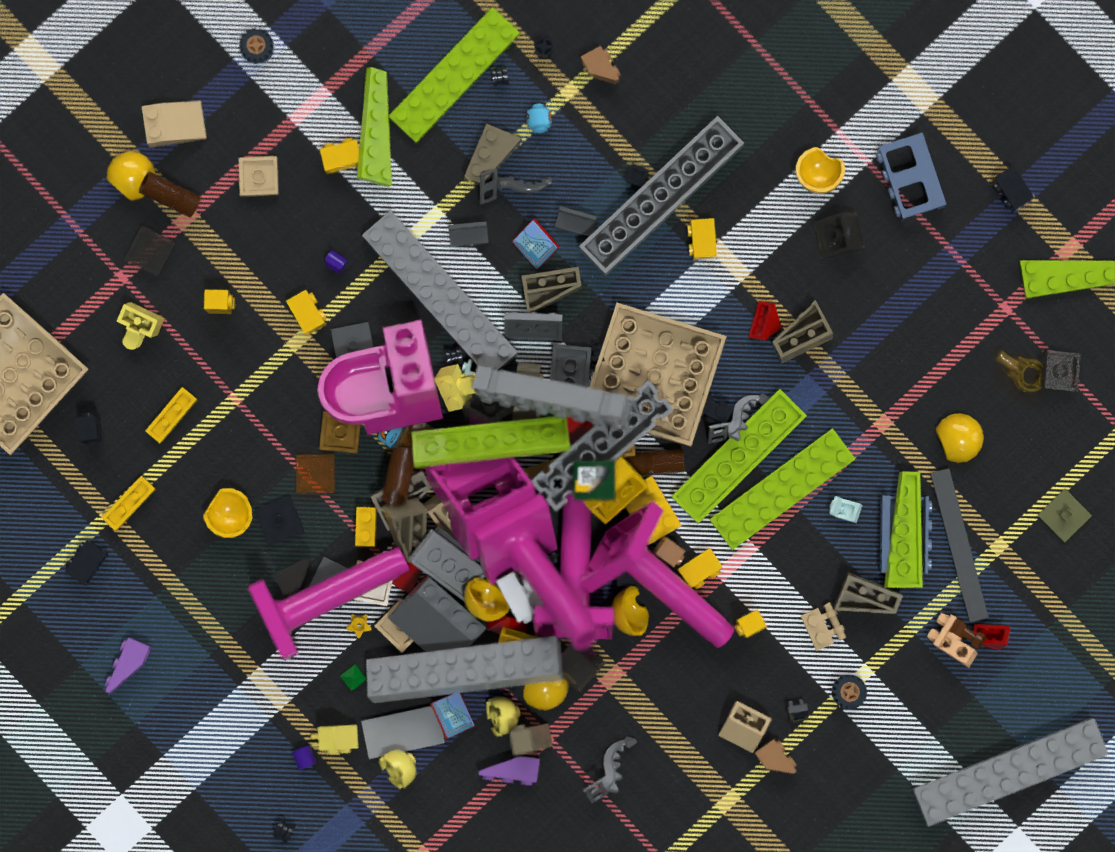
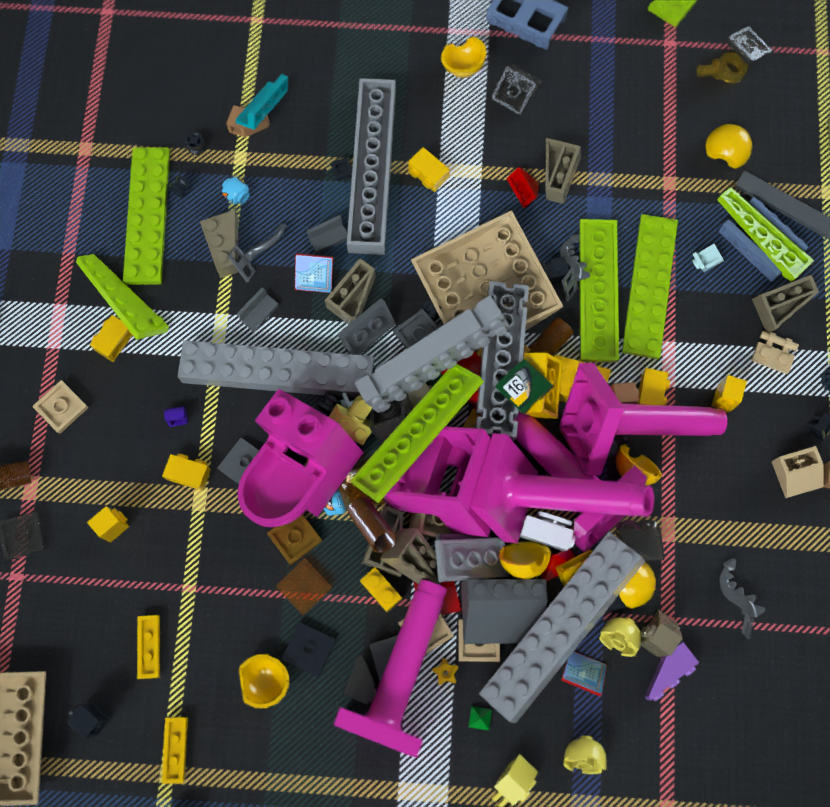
camera: 45 degrees left, 10 degrees down
(138, 323) = (59, 600): light yellow brick -> none
(402, 732) = (558, 724): light grey tile -> none
(624, 65) = (263, 103): none -> teal panel

